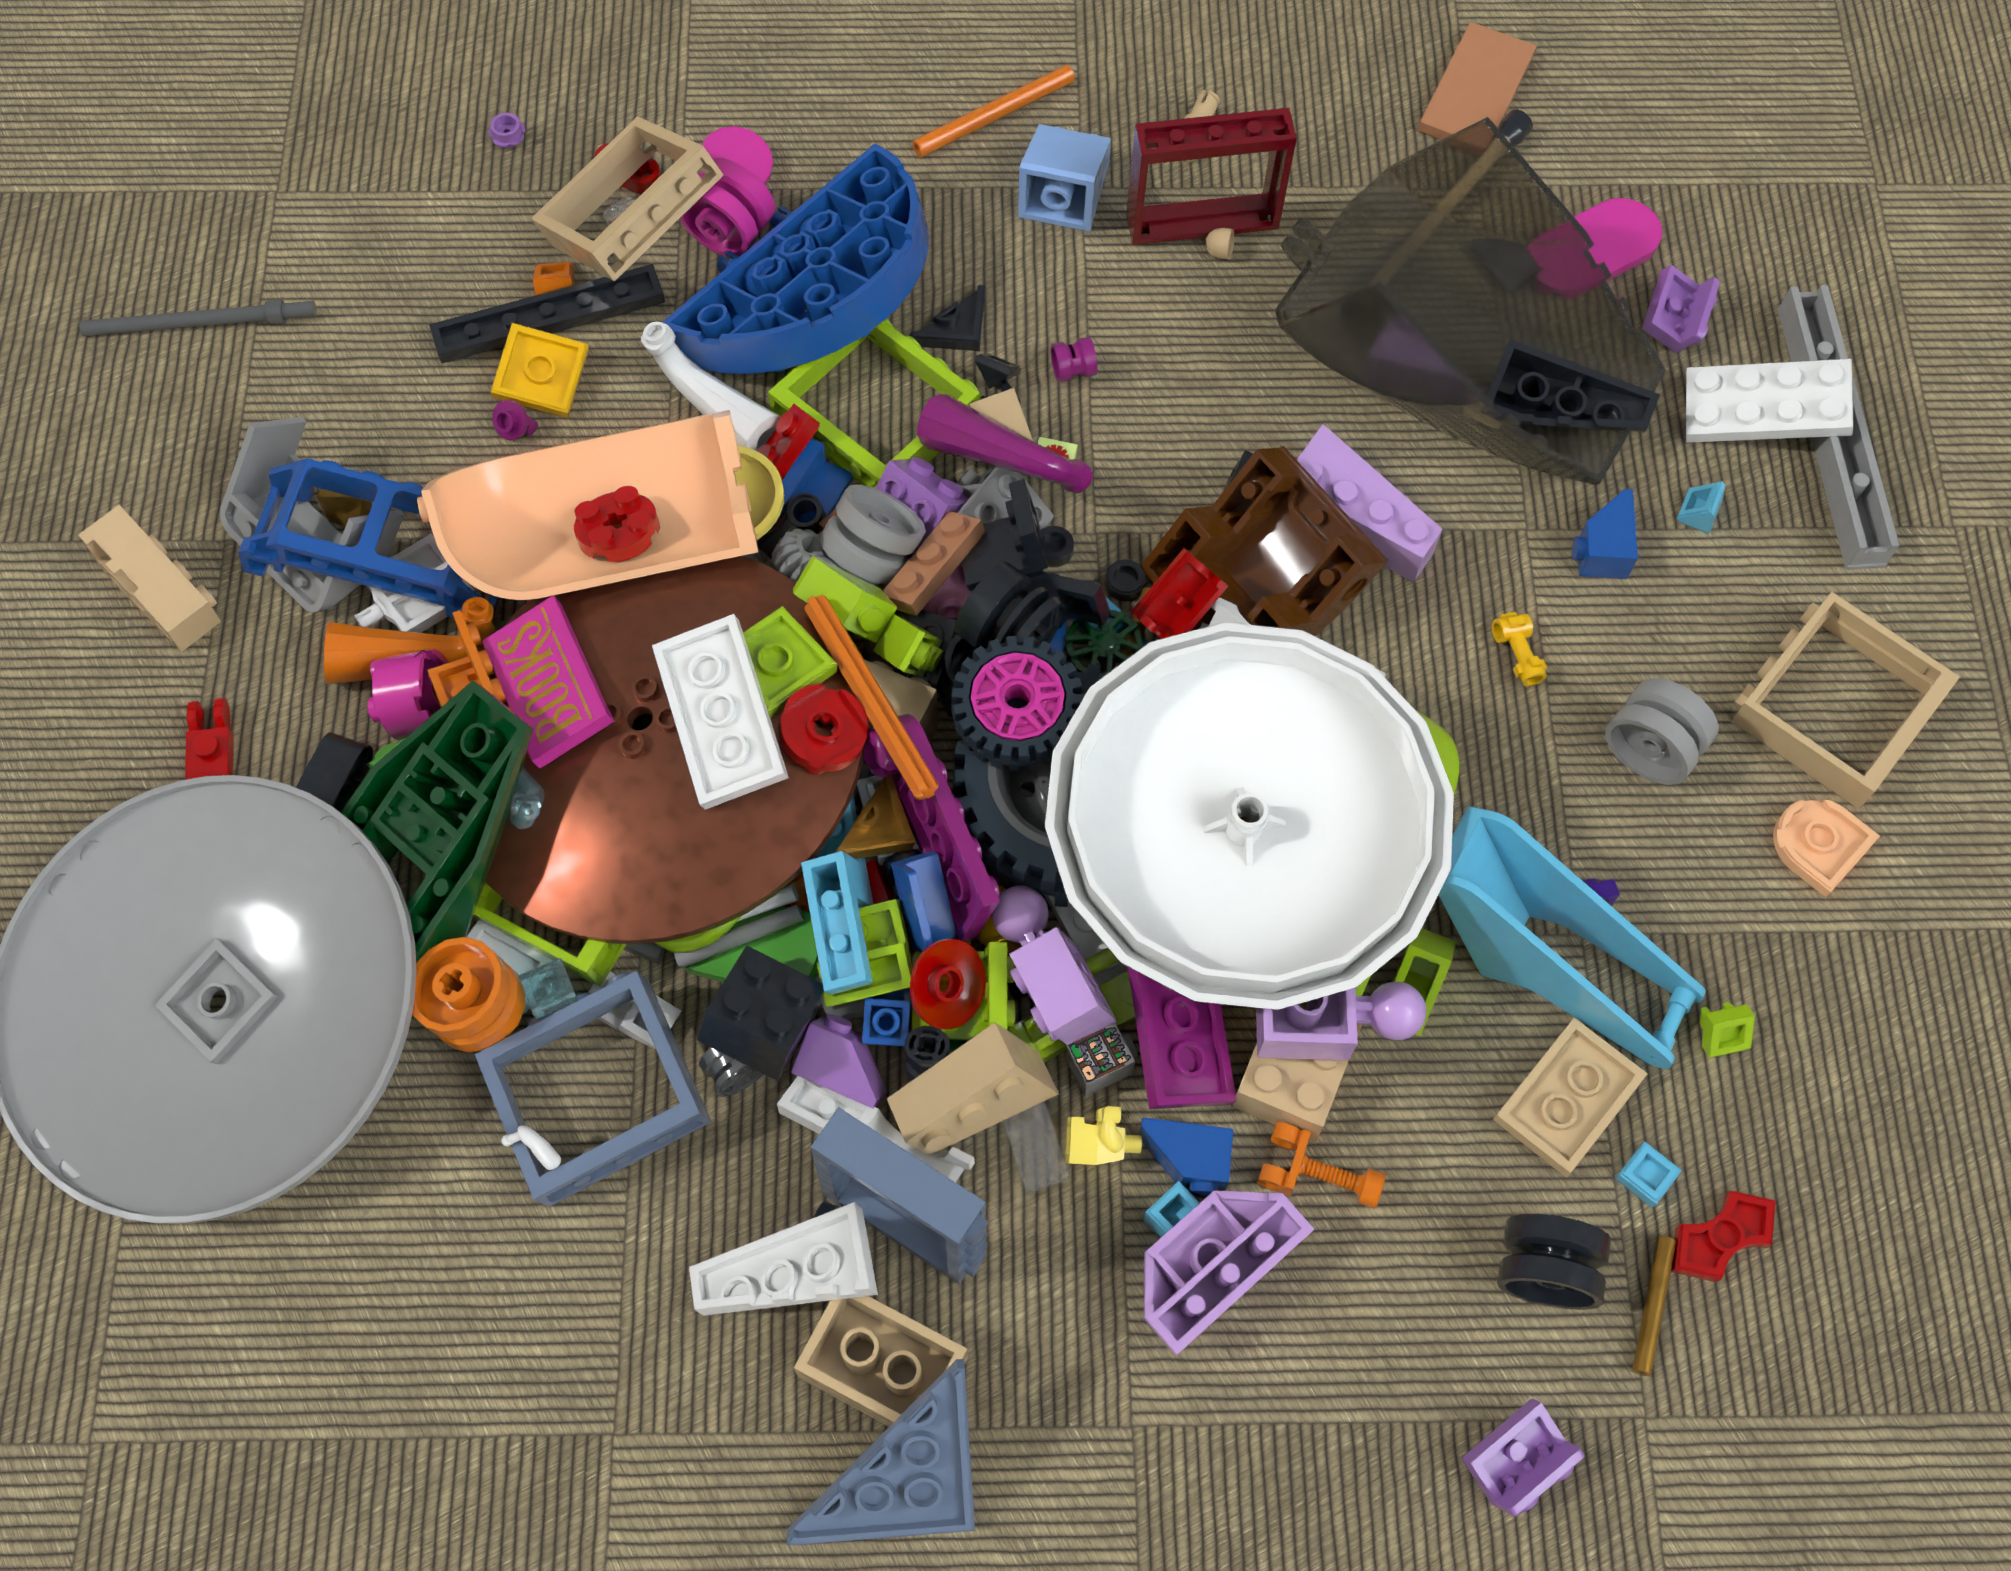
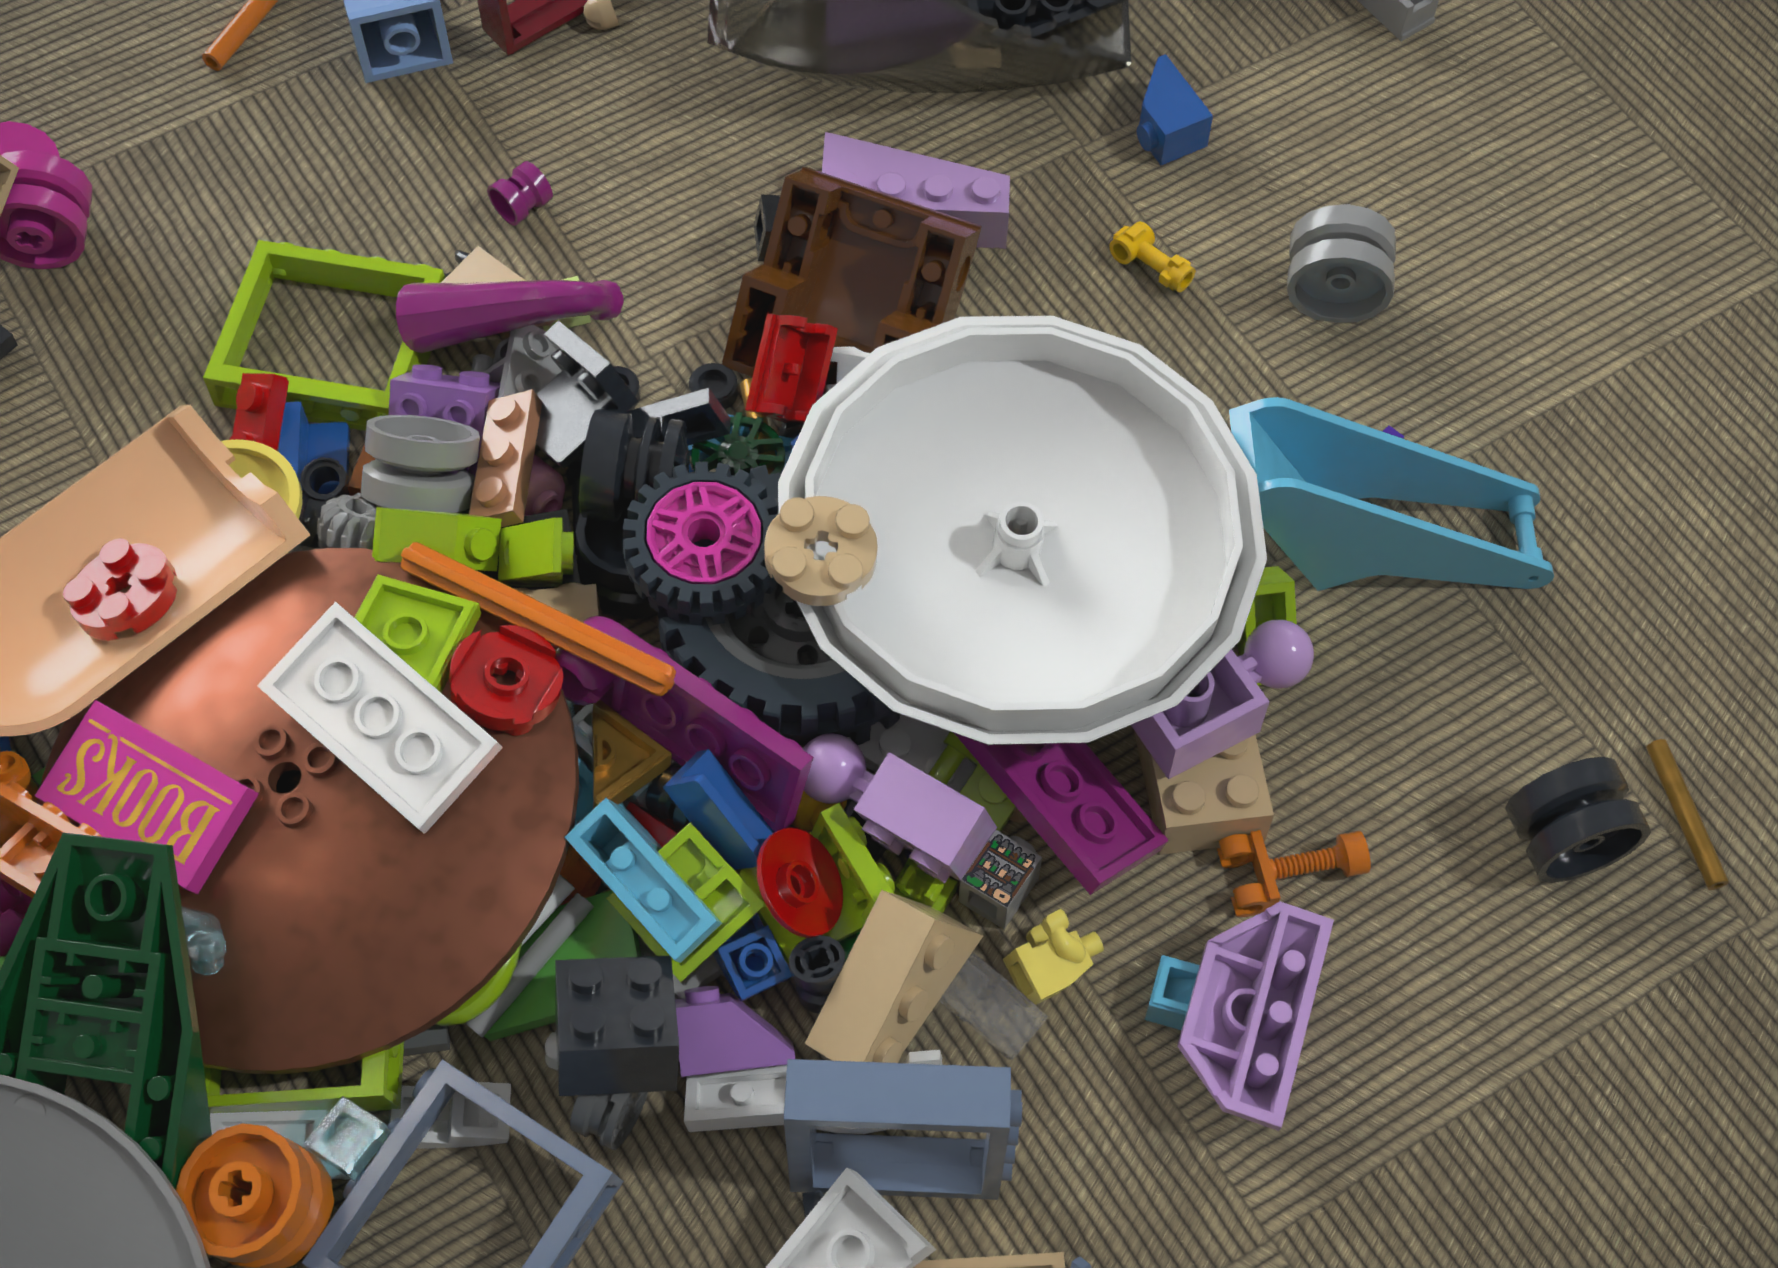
camera: 30 degrees left, 5 degrees down
(708, 394) = (120, 413): white animal -> none
(814, 277) = (178, 239): blue brick -> none
(956, 326) = (368, 218): black tile -> none
(995, 369) = (441, 243): black slope -> none
(1083, 781) = (827, 520): none -> tan plate
(1190, 1153) = (1154, 921): blue slope -> none
(1522, 1459) = (1670, 1034): medium lavender bracket -> none
(1570, 1097) = (1481, 659): tan plate -> none
(1648, 1174) = (1598, 692): medium azure tile -> none
(1702, 506) = (1234, 43): medium azure slope -> none
(1707, 1247) = (1698, 728): red tile -> none
(1727, 1029) = (1580, 514): lime tile -> none
(1821, 842) = (1546, 298): light nougat tile -> none
(1880, 646) = (1490, 93): tan window -> none

